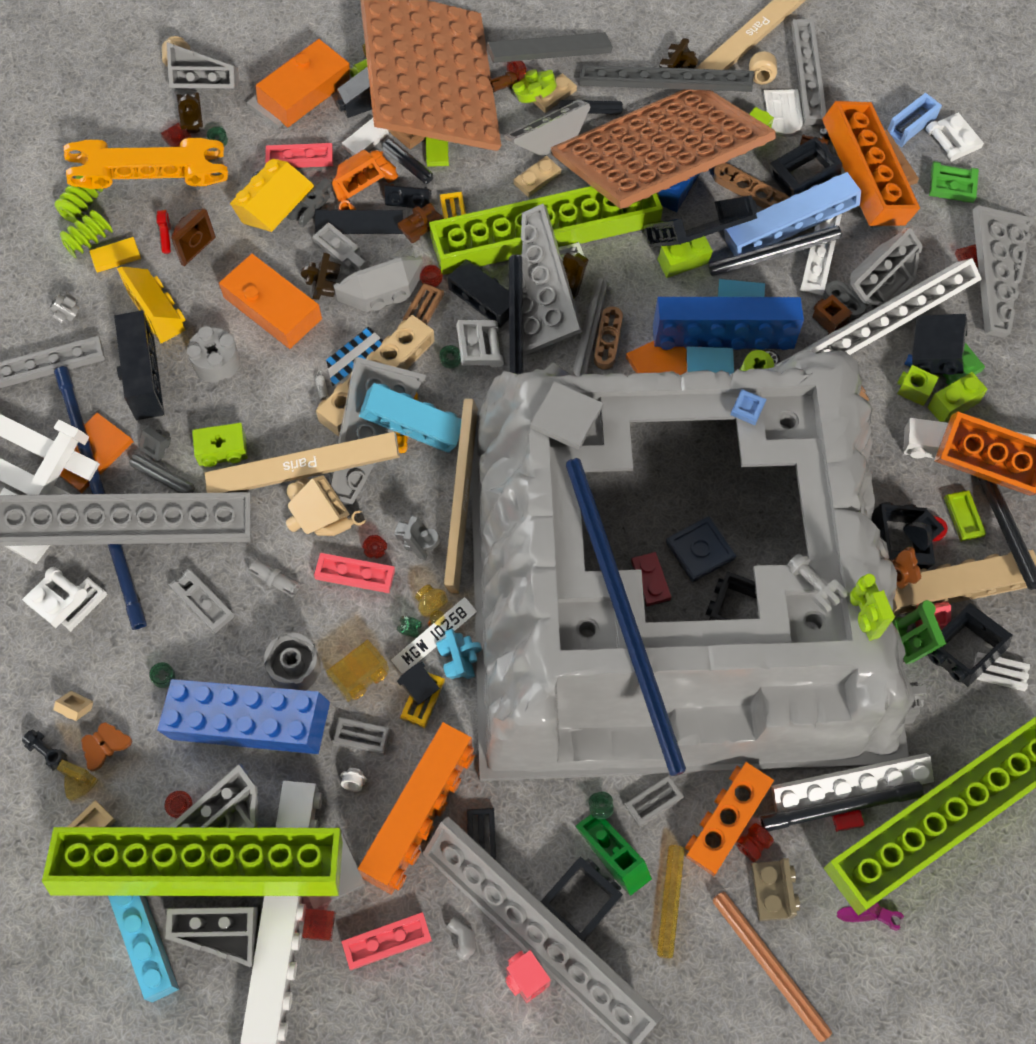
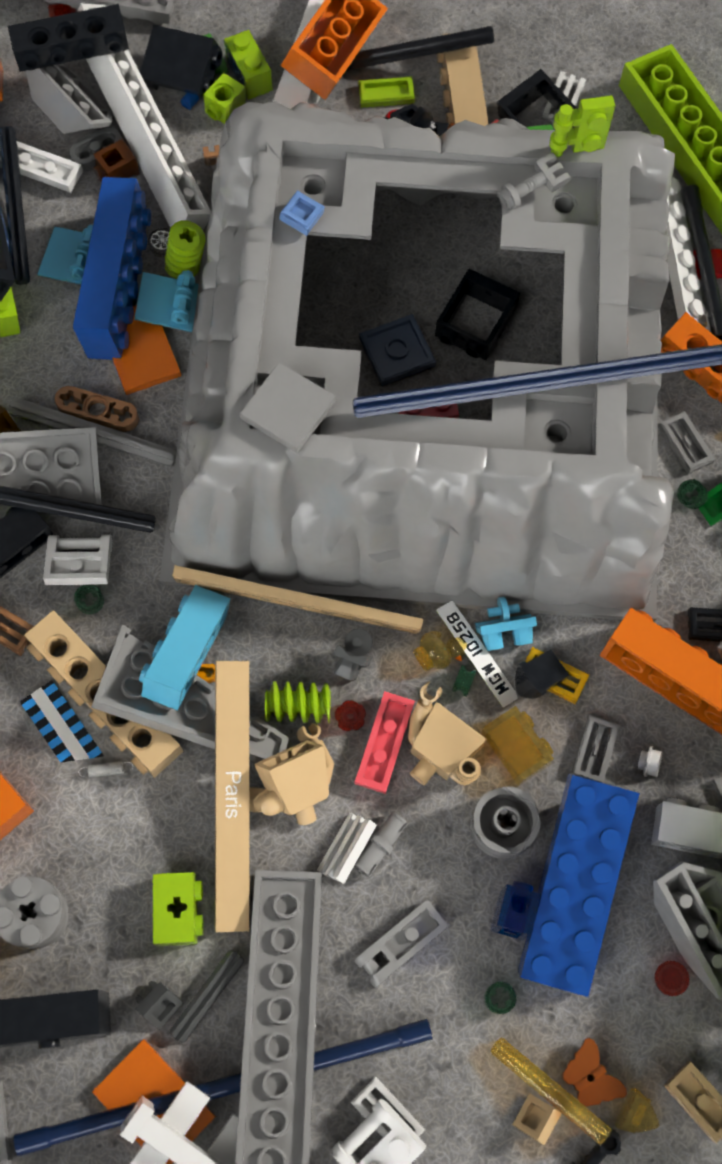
camera: 85 degrees left, 5 degrees up
(91, 712) = (551, 1091): none -> clear yellow axle
(220, 668) = (515, 911): none -> clear blue brick
(270, 553) = (346, 847): none -> white tile
(355, 613) = (442, 742): none -> tan torso
(379, 505) = (297, 702): none -> lime piece
(928, 252) = (68, 37): none -> black brick

